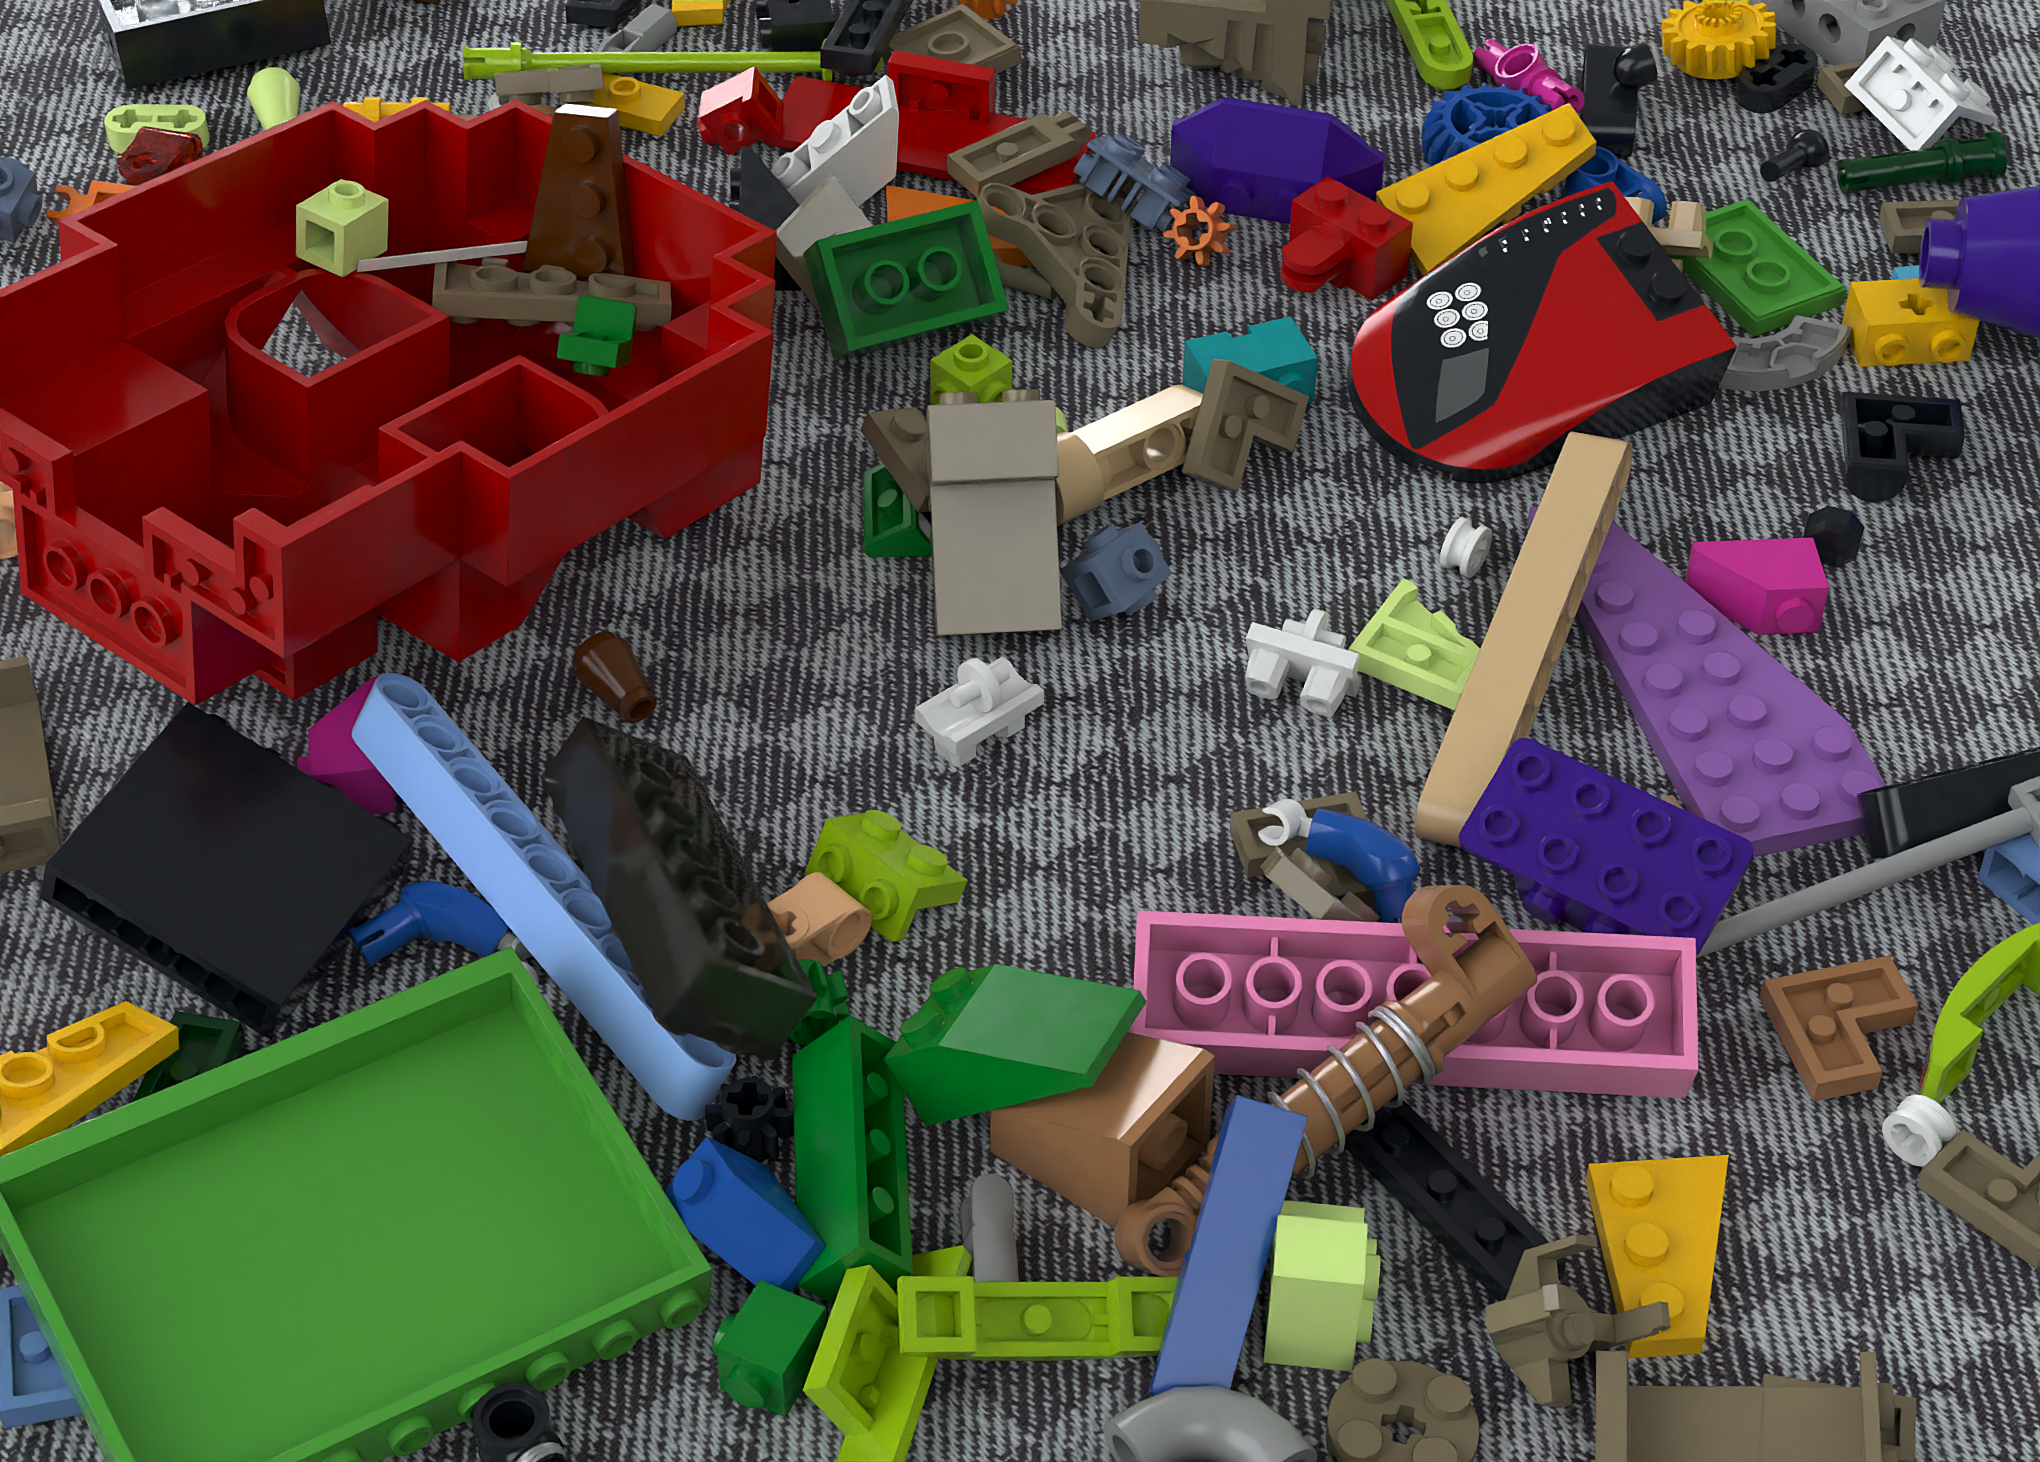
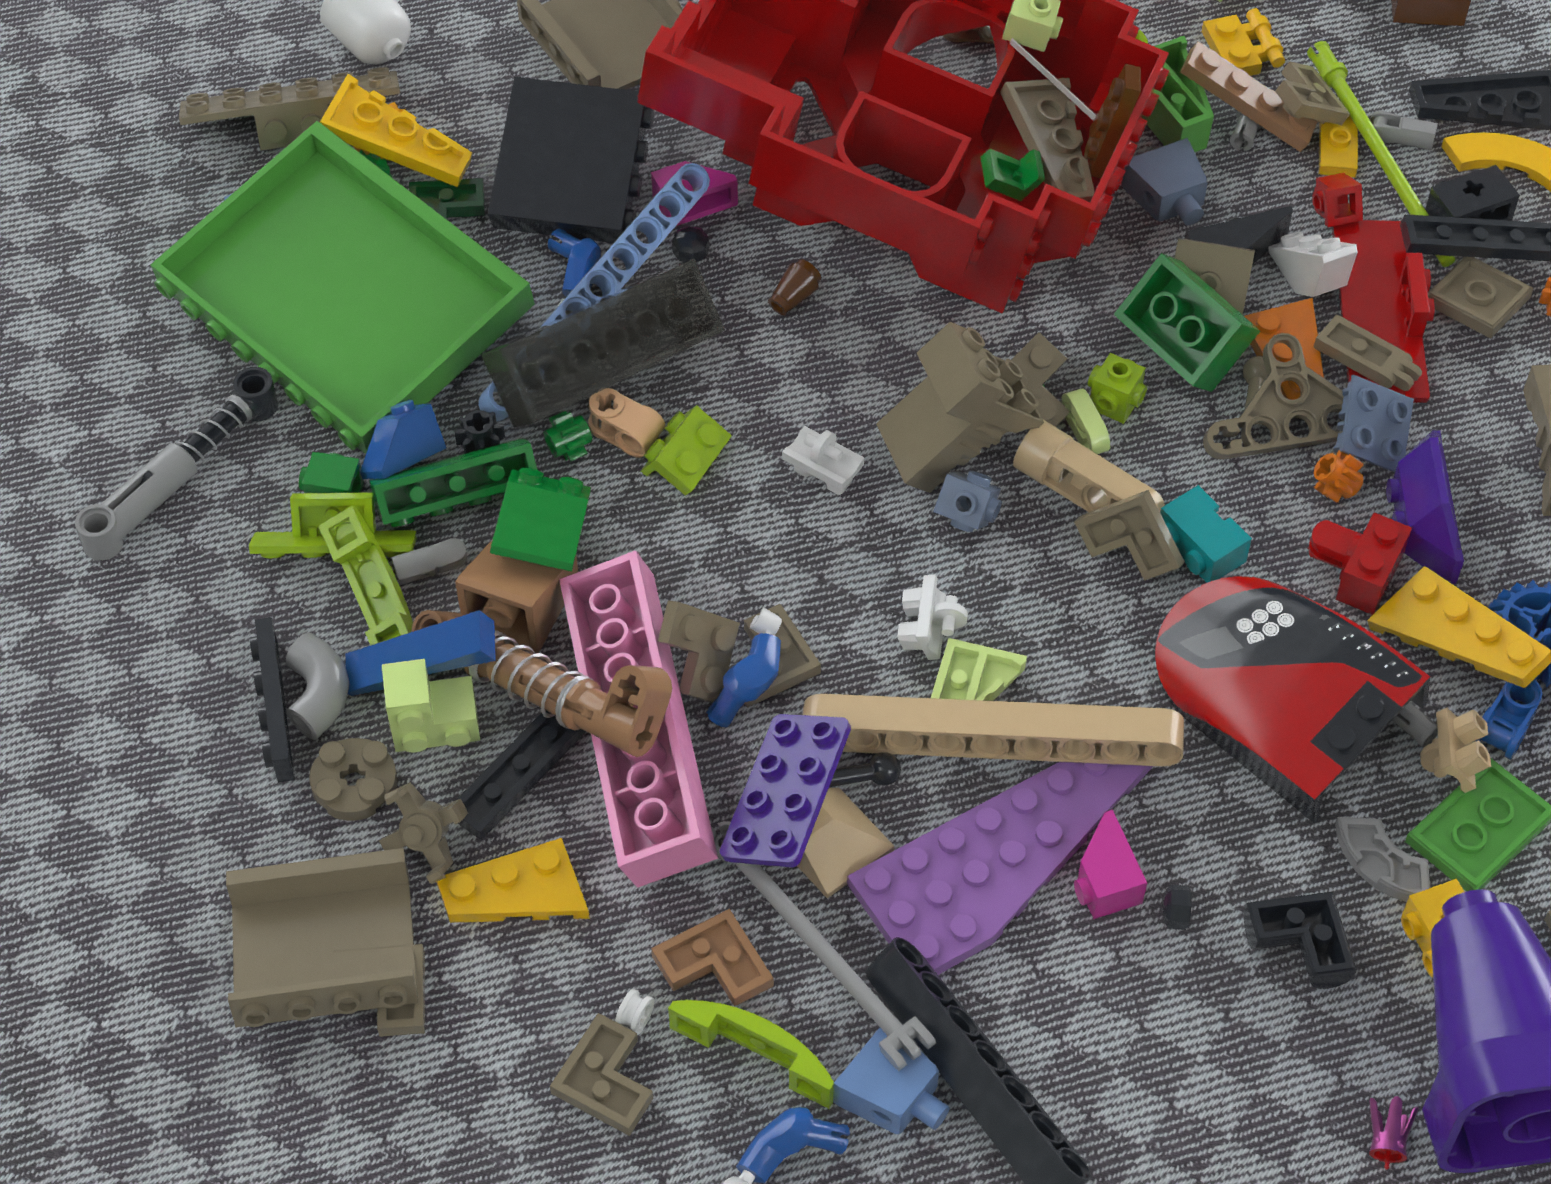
camera: 75 degrees right, 10 degrees up
(1465, 547) = (1077, 688): white bush -> none

